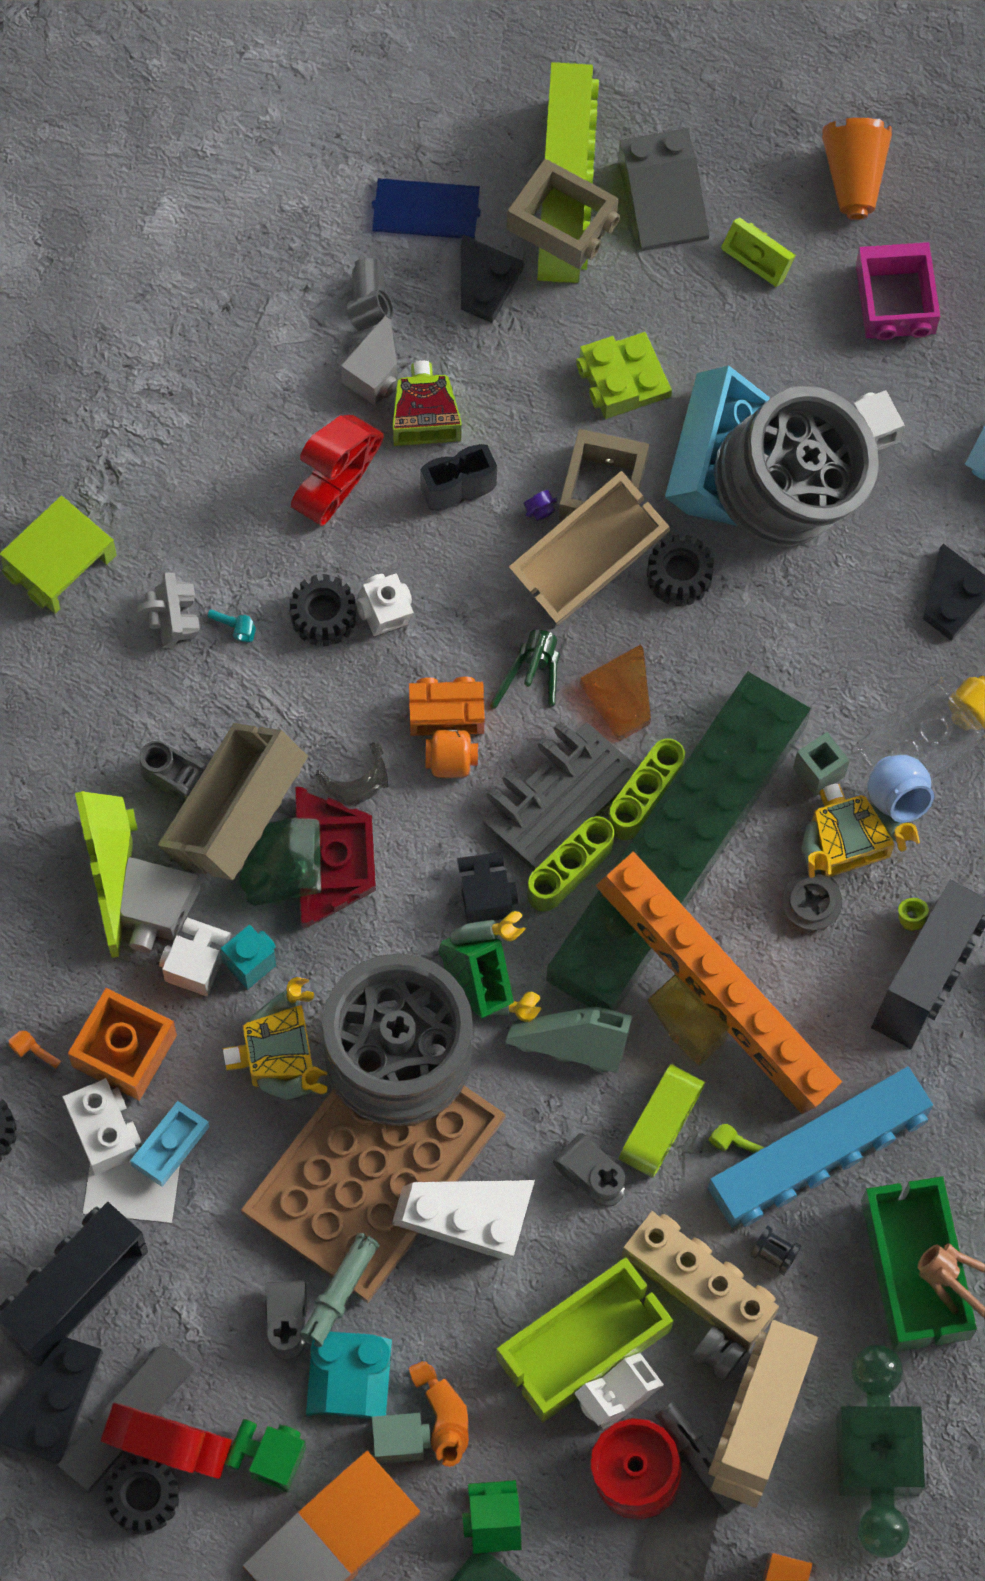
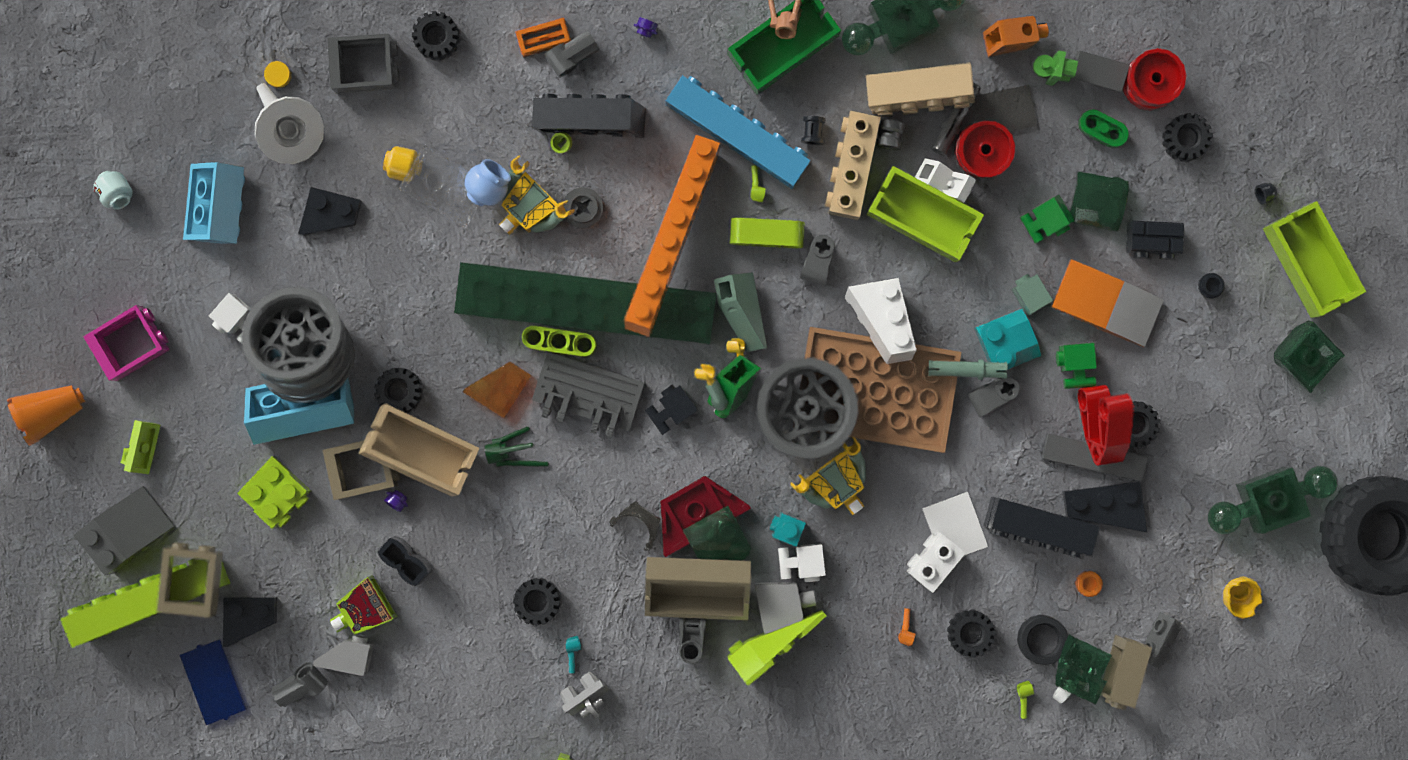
camera: 115 degrees left, 20 degrees up
(122, 1043) = (881, 575): orange brick -> none
(169, 1143) = (925, 516): medium azure plate -> none
(340, 458) = (436, 643): red connector -> none
(384, 603) = (518, 555): white brick -> none
(446, 706) = (565, 491): orange brick -> none
(450, 1429) = (1008, 268): orange arm -> none
(451, 754) = (595, 473): orange head -> none
(577, 848) = (619, 361): lime beam -> none
(688, 1020) = (698, 245): clear yellow slope -> none
(821, 763) = (492, 240): sand green brick -> none

